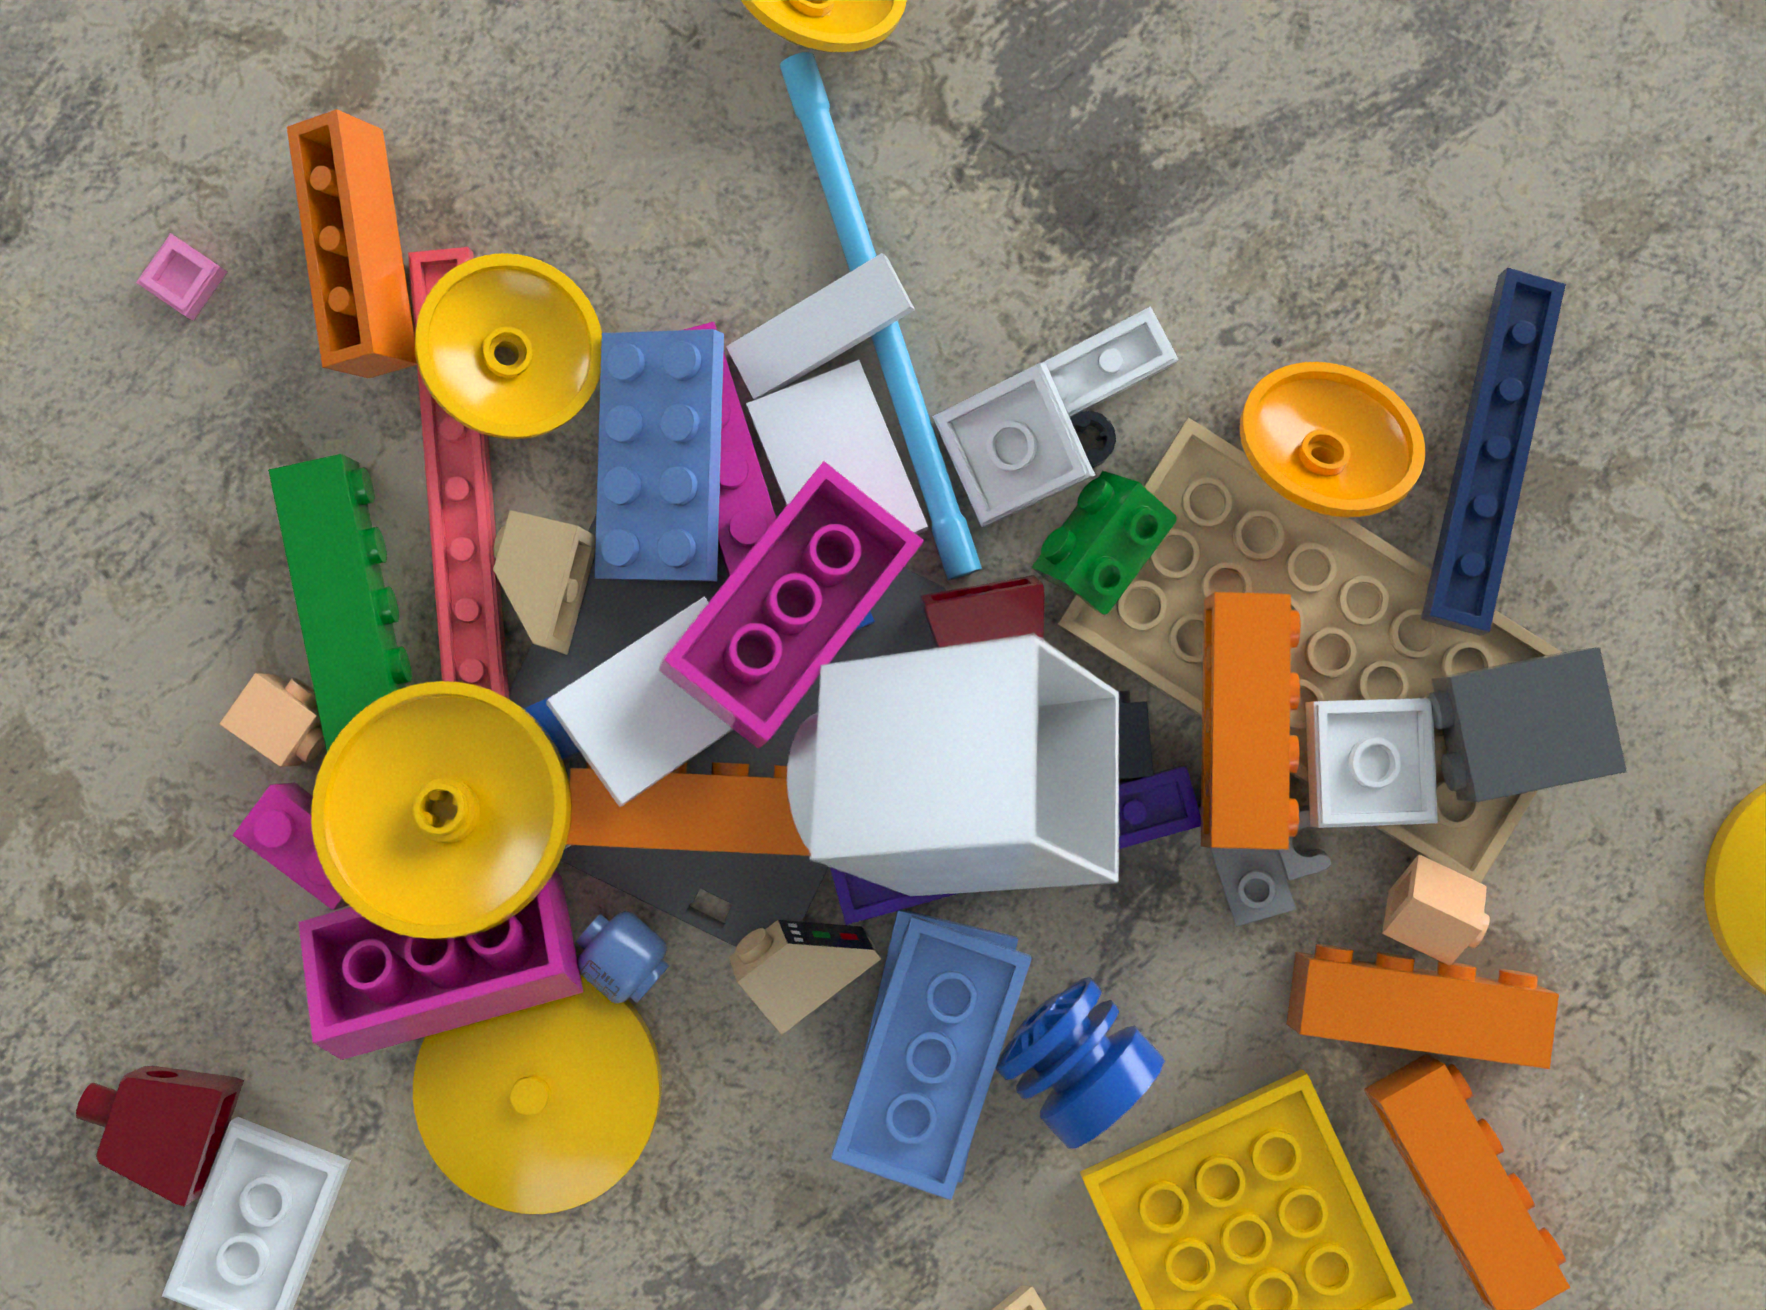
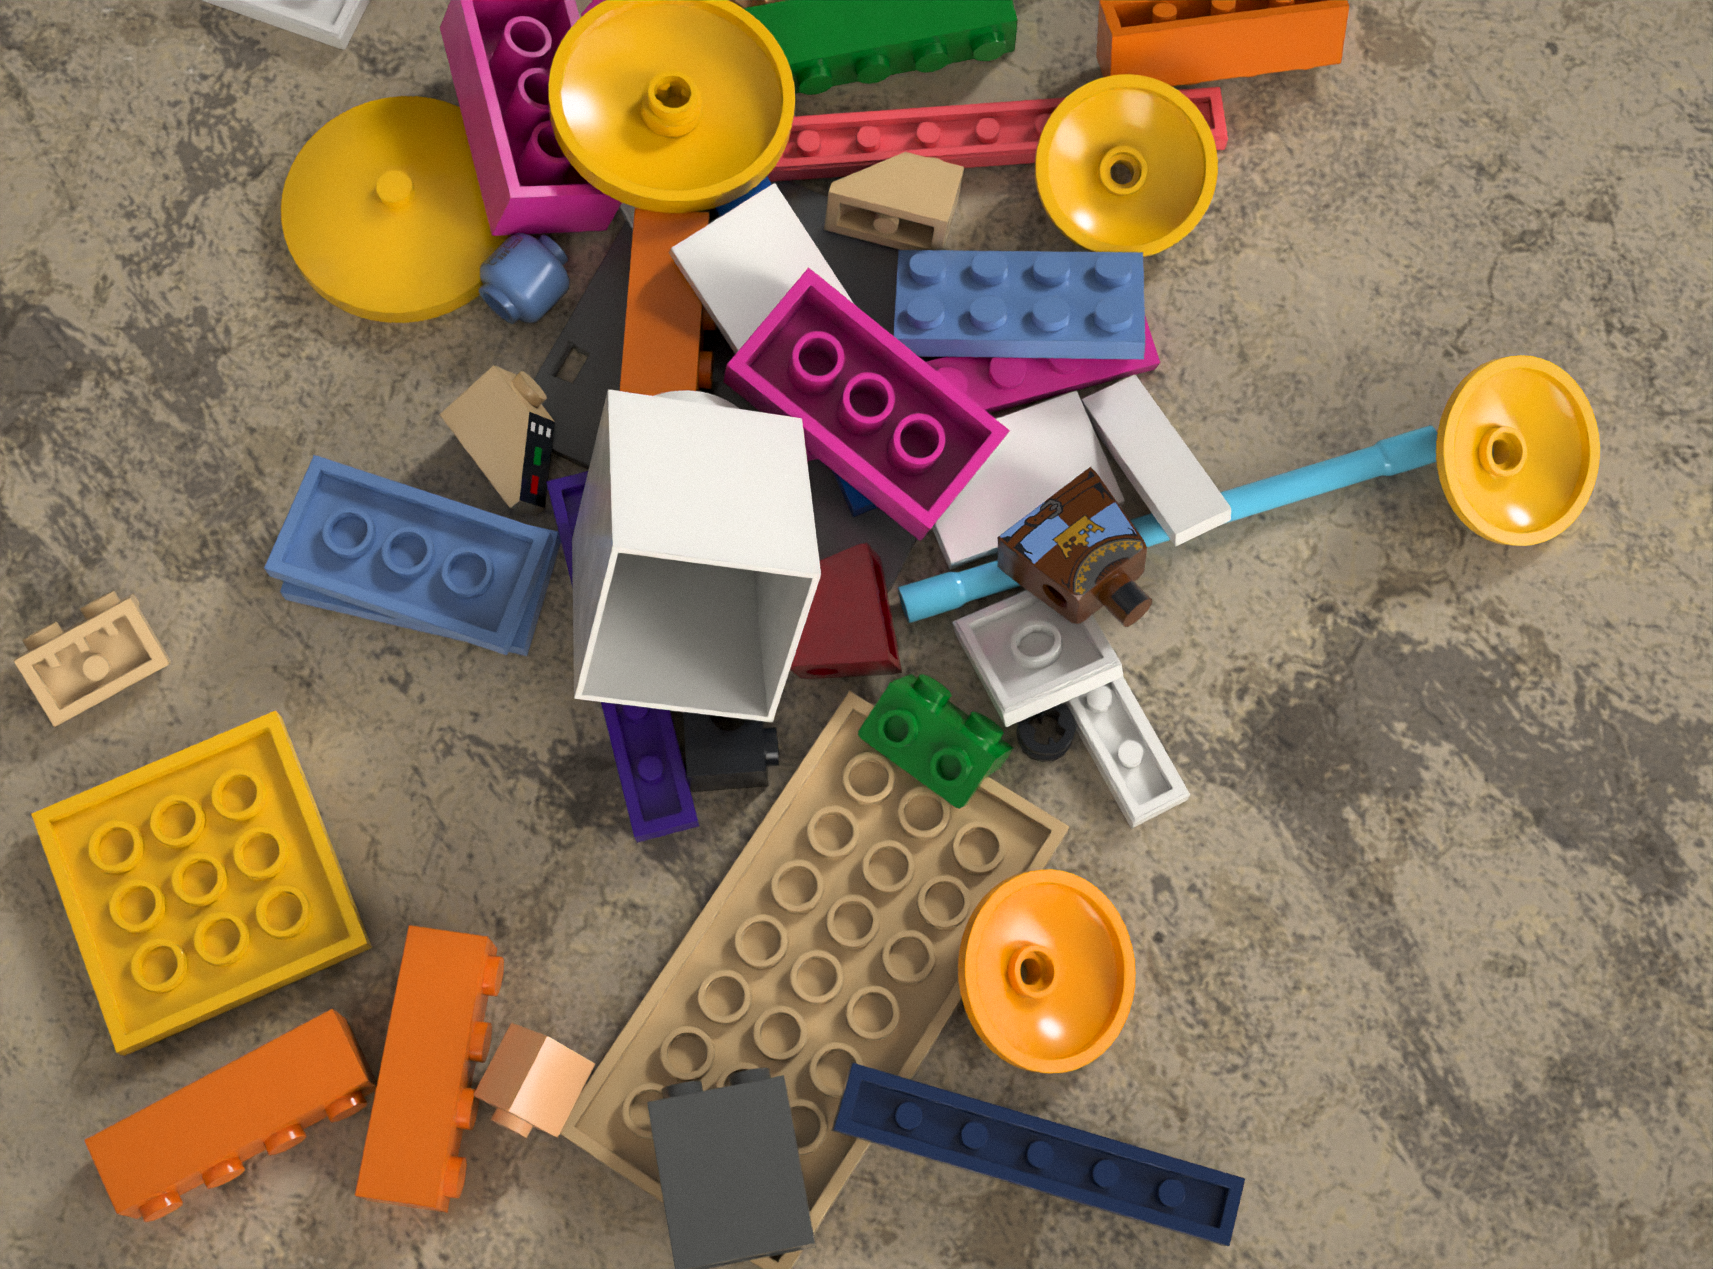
camera: 90 degrees right, 15 degrees down
(931, 397) = (1079, 553): none -> torso
(1090, 1073) = (395, 696): blue wheel -> none
(1248, 721) = (740, 869): orange brick -> none
(1258, 877) = (602, 901): light grey plate -> none
(1371, 762) = (694, 1007): white tile -> none

